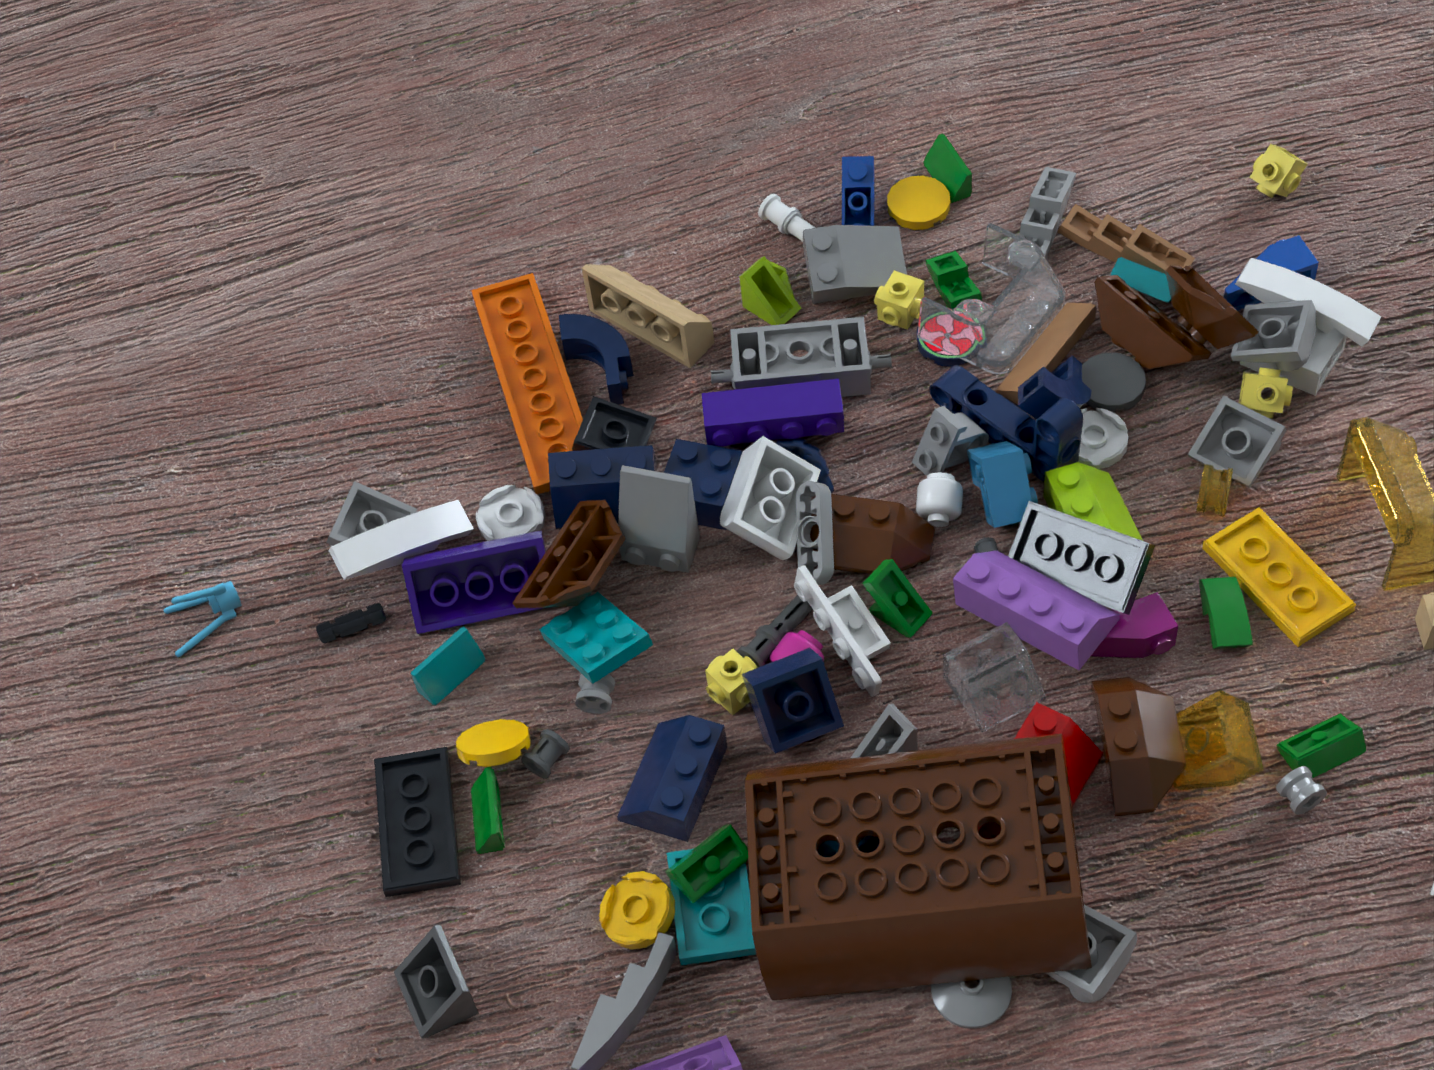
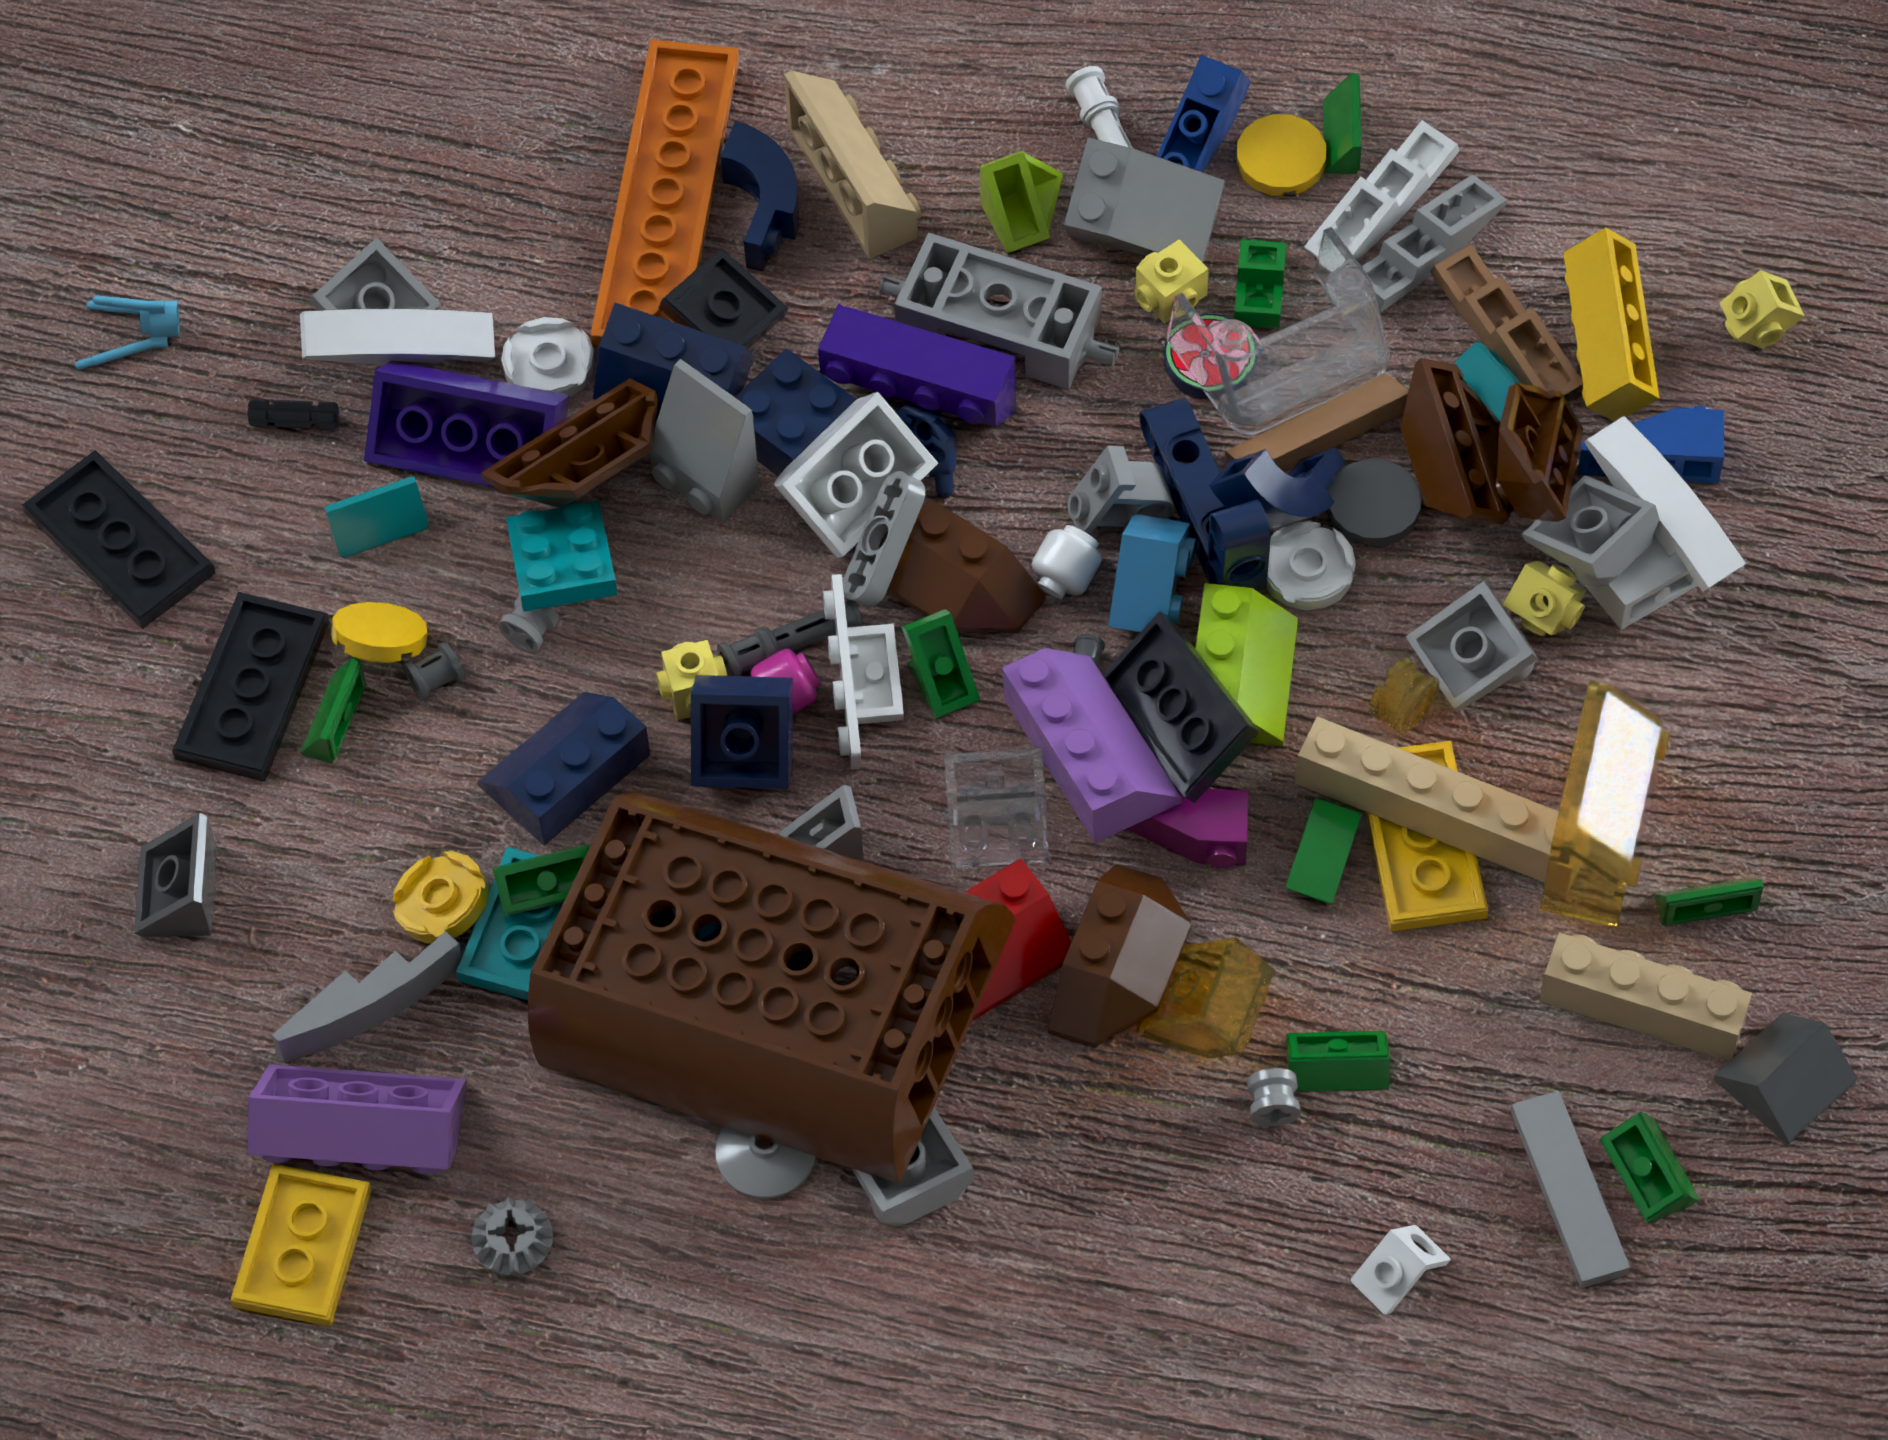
camera: 20 degrees right, 5 degrees up
(267, 760) = (119, 539): none -> black tile
(1000, 194) = (1388, 192): none -> white slope
(1193, 216) = (1610, 325): none -> yellow brick
(1282, 546) = (1427, 798): none -> tan brick

